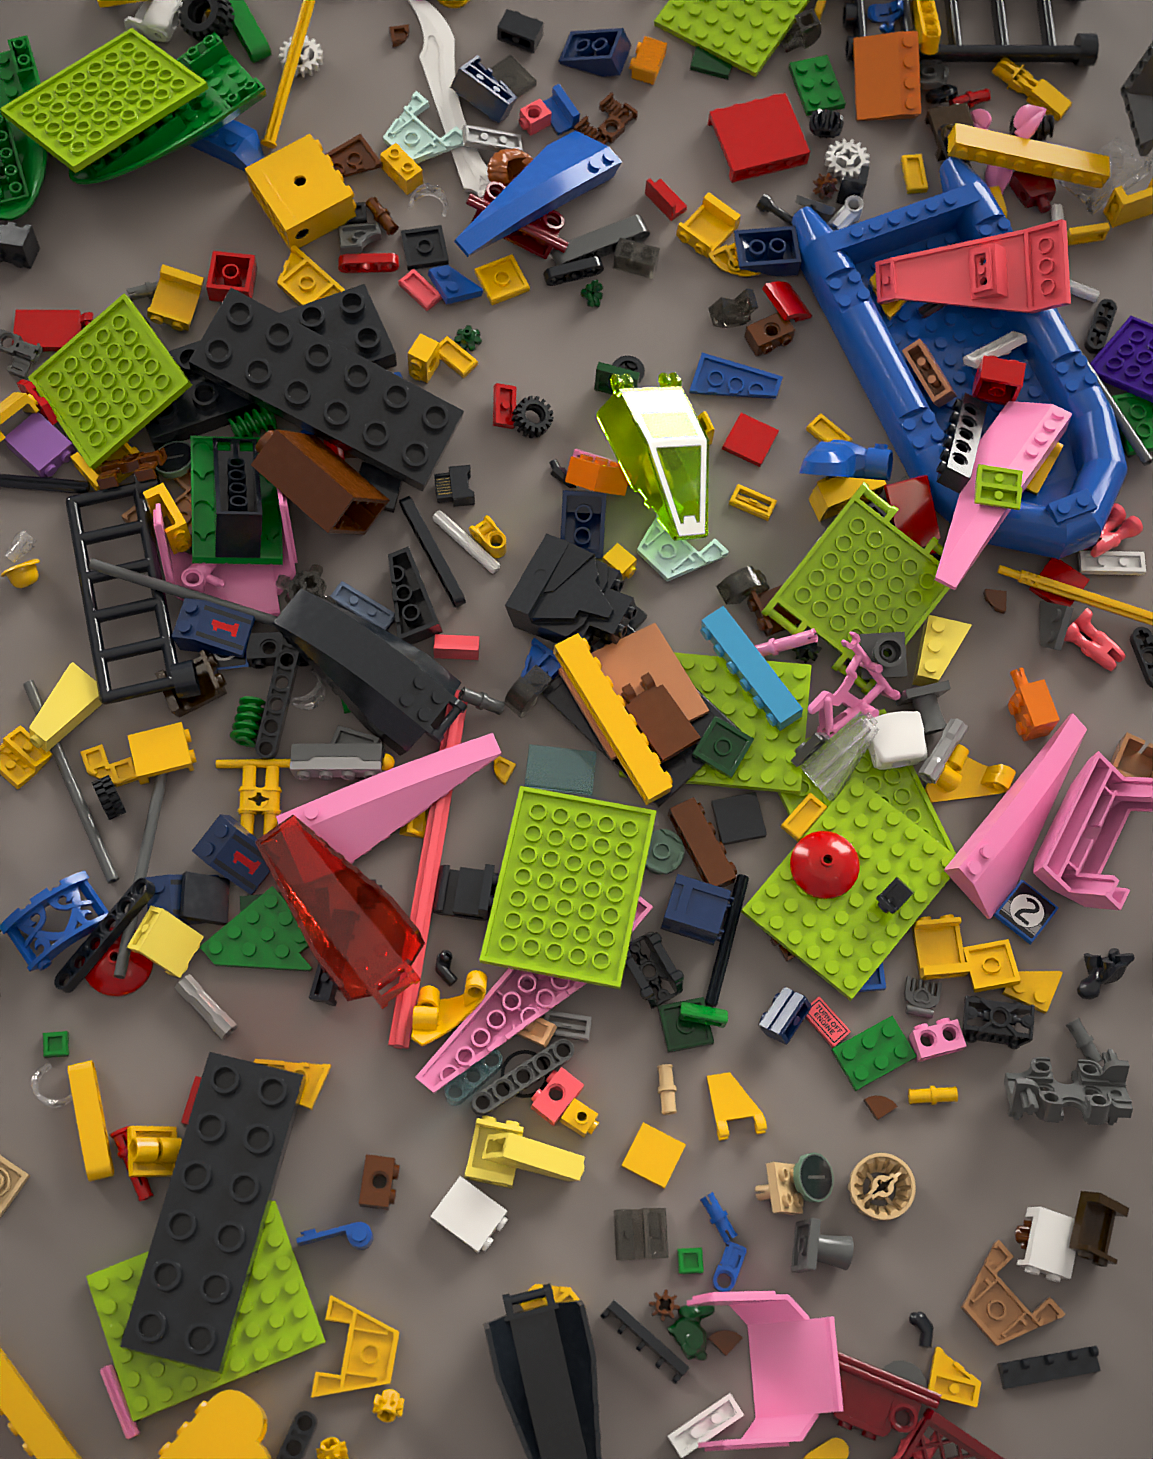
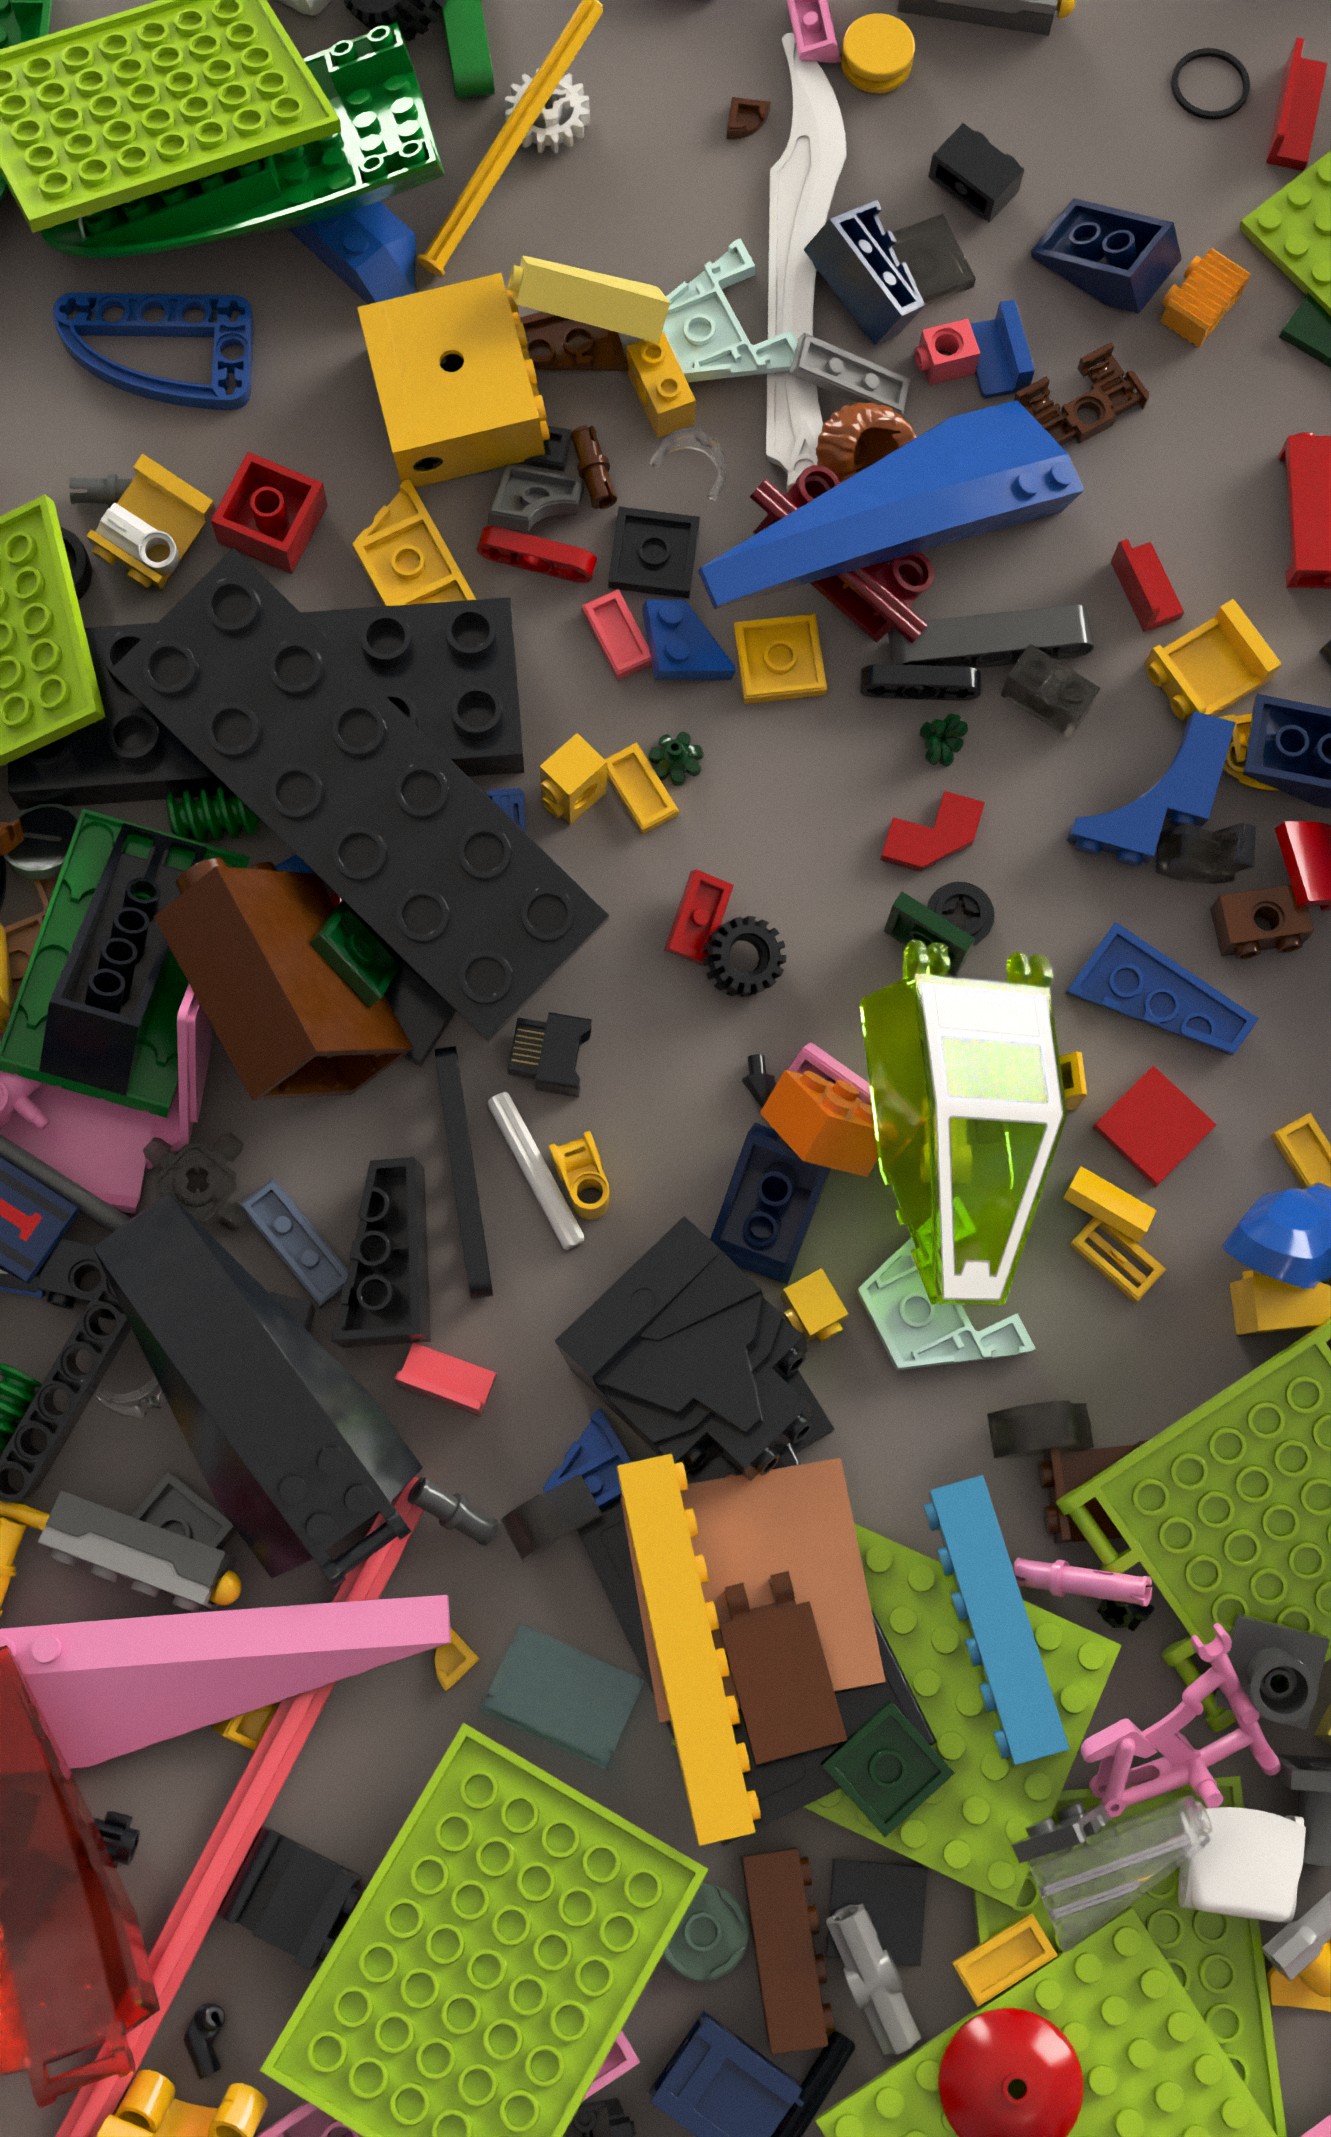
camera: 20 degrees right, 5 degrees up
(150, 204) = (171, 325): none -> blue beam
(172, 305) = (137, 538): none -> white piece
(348, 462) = (356, 953): none -> dark green tile
(357, 134) = (590, 297): none -> light yellow slope
(600, 345) = (922, 846): none -> red tile
(714, 285) = (1181, 794): none -> blue arch
(741, 479) = (1109, 1204): none -> yellow tile
(747, 843) = (873, 1979): none -> light grey piece

